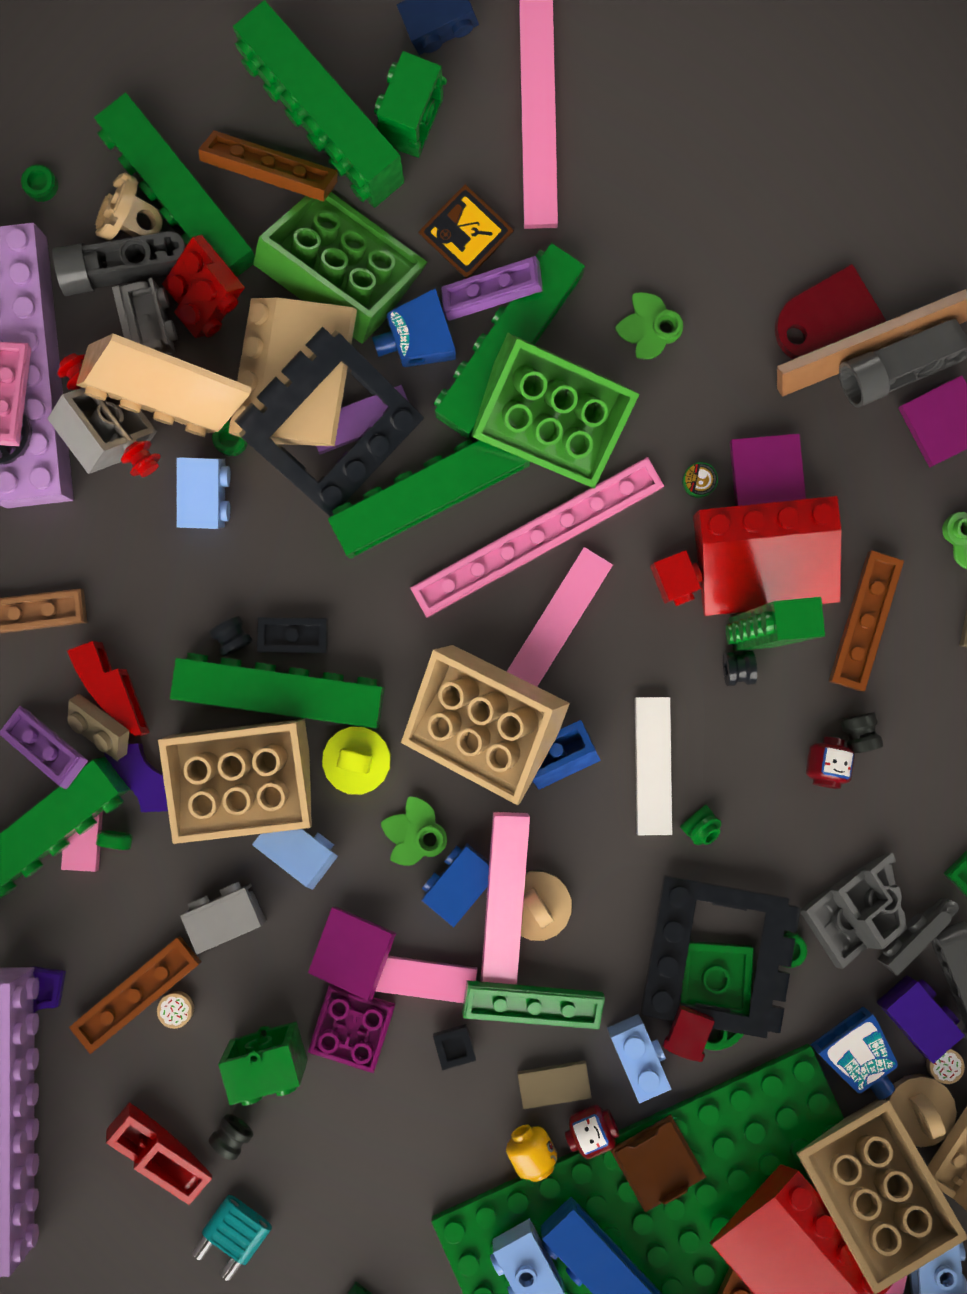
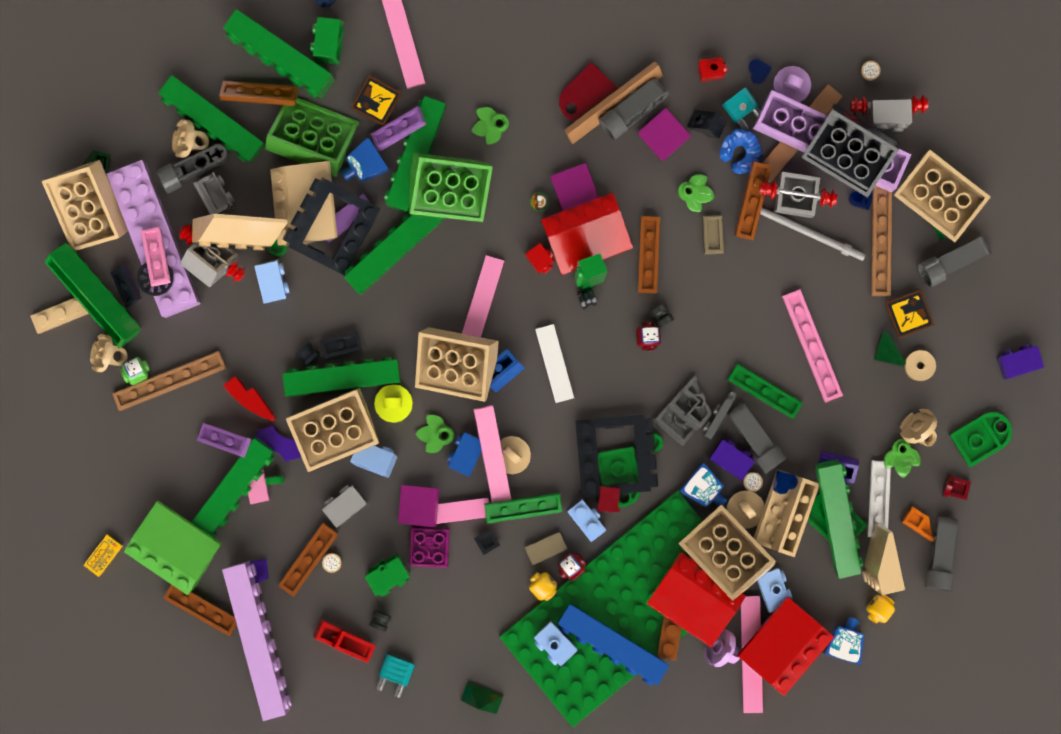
camera: 10 degrees left, 0 degrees up
(39, 183) = (134, 134): green tile -> none
(98, 727) = (250, 421): dark tan plate -> none
(202, 288) = (242, 170): red plate -> none
(537, 537) = (459, 256): bright pink tile -> none
(658, 1163) = (610, 572): reddish brown piece -> none
(702, 826) = (589, 389): green plate -> none

